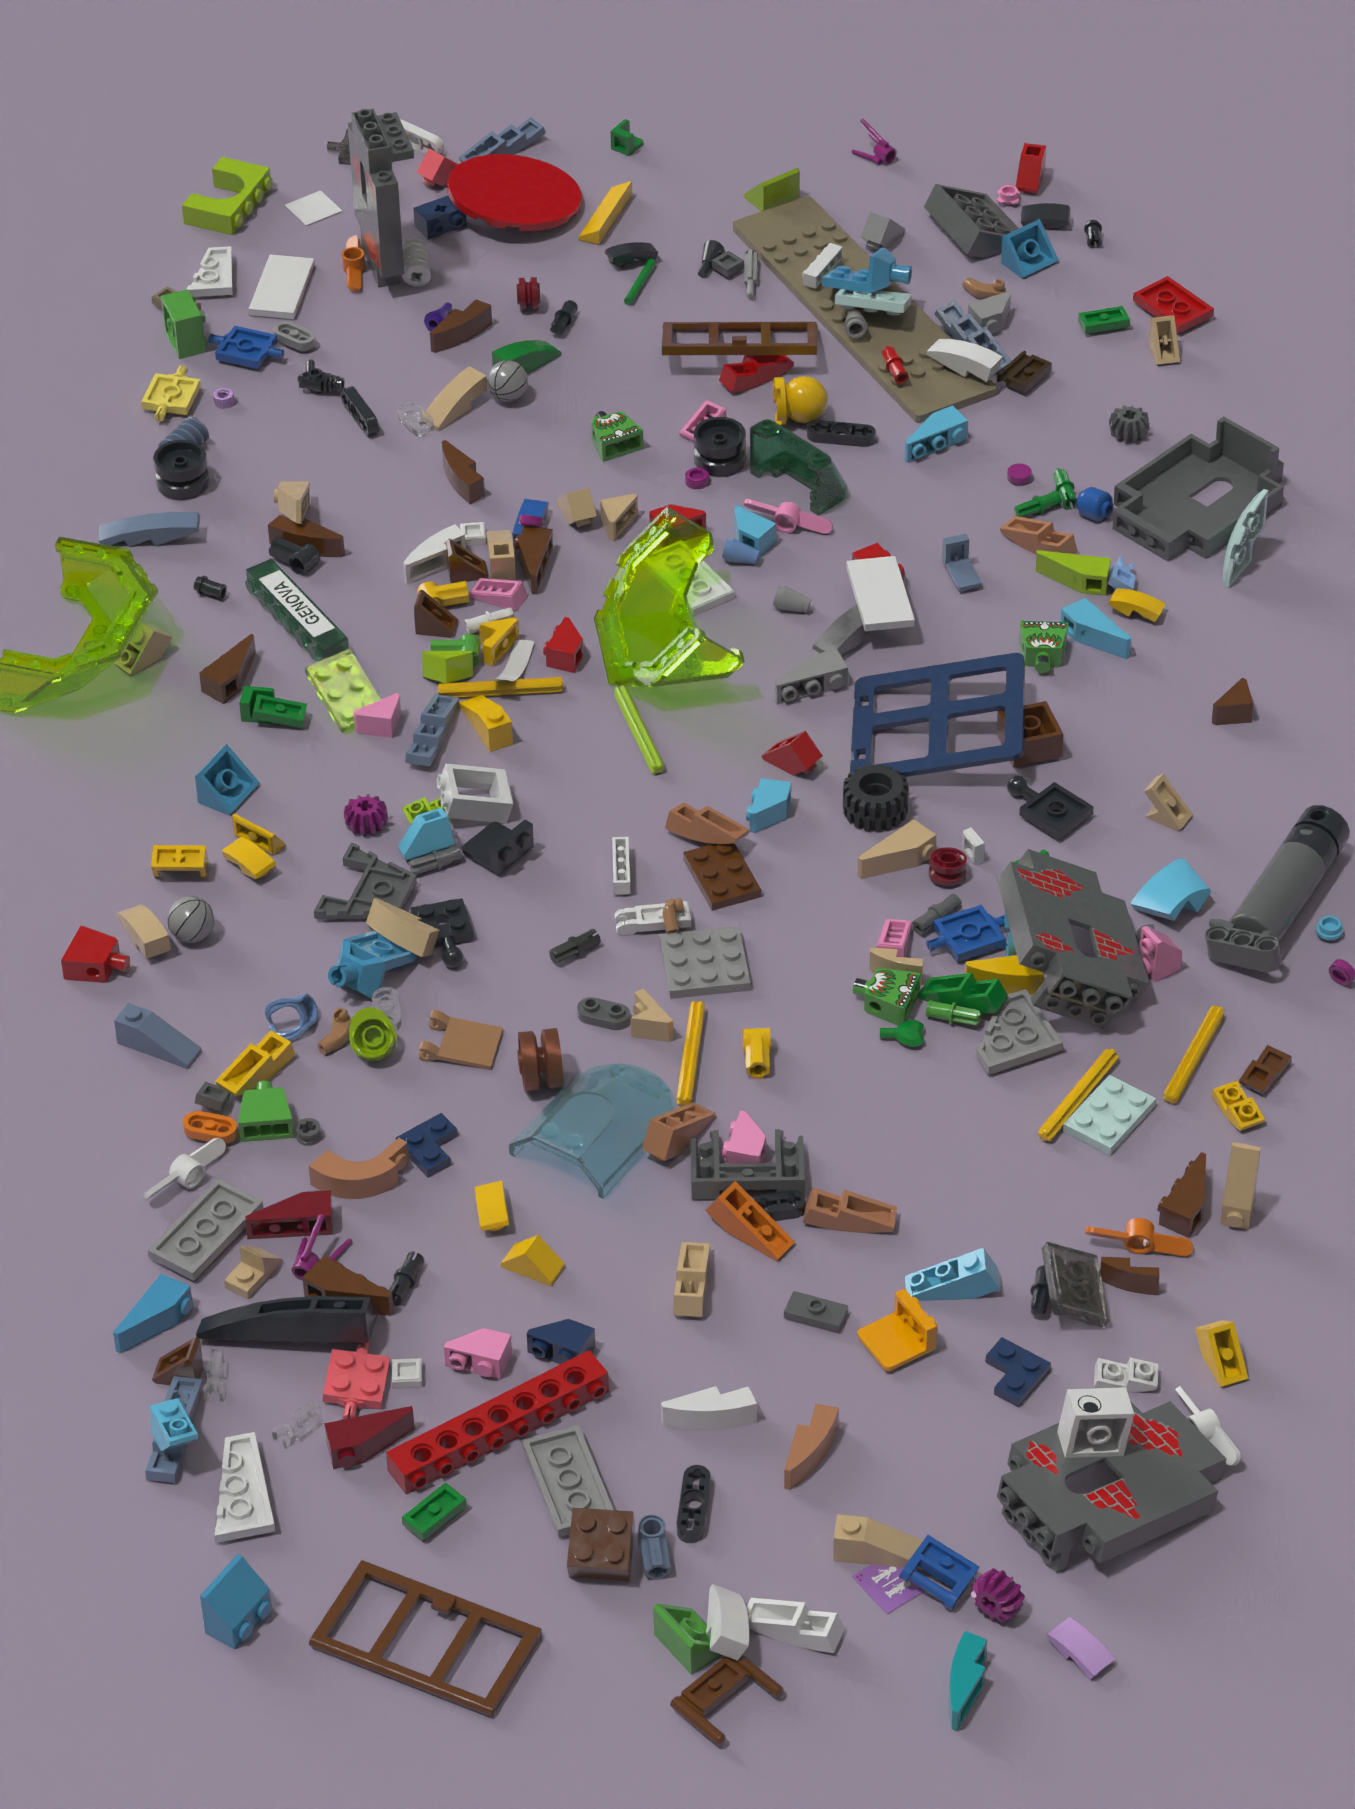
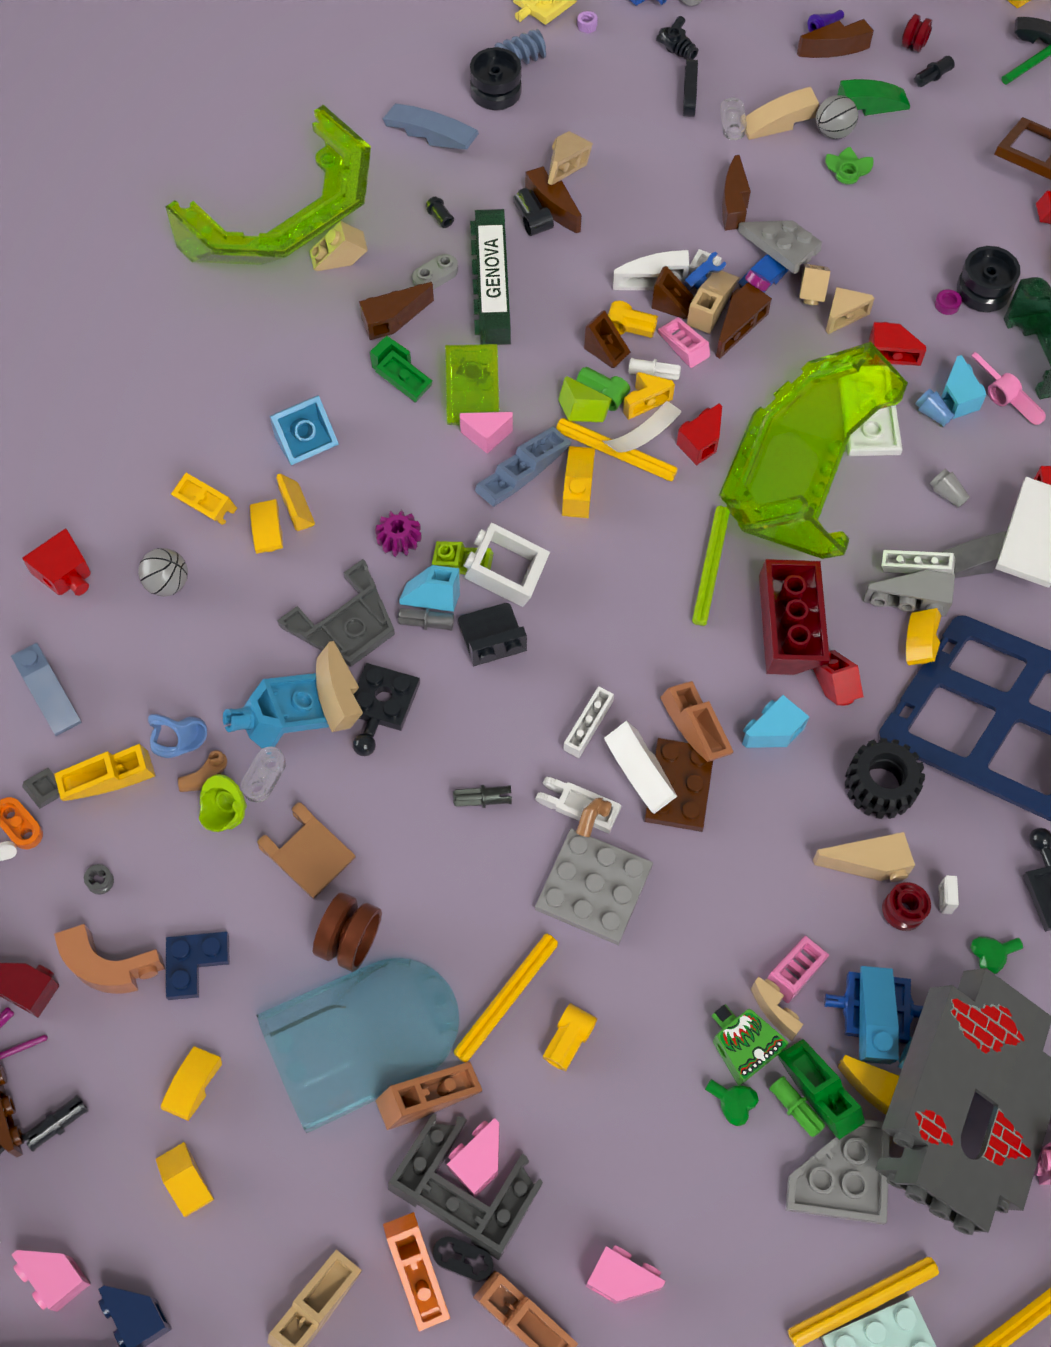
camera: 30 degrees right, 20 degrees up
(145, 930) = (122, 558): tan slope -> none
(241, 628) = (438, 270): none -> light grey plate
(265, 1114) = (72, 836): bright green torso -> none
(478, 541) = (698, 277): none -> blue plate
(528, 487) = (782, 241): none -> light grey wing
(540, 416) = (849, 166): none -> bright green plate
(603, 1013) = (457, 893): dark grey plate -> none
(615, 435) = (900, 219): bright green torso -> none
(650, 1019) = (492, 938): tan slope -> none
(684, 869) = (640, 766): none -> white slope
(707, 409) = (1004, 230): bright pink slope -> none
(730, 728) = (793, 616): none -> dark red slope
(795, 656) = (916, 561): none -> white piece
(840, 701) = (921, 639): none -> yellow slope
(902, 1158) = (622, 1279): none -> bright pink slope
(946, 907) = (852, 962): dark grey pin -> none
(974, 930) = (878, 1016): none -> dark azure slope

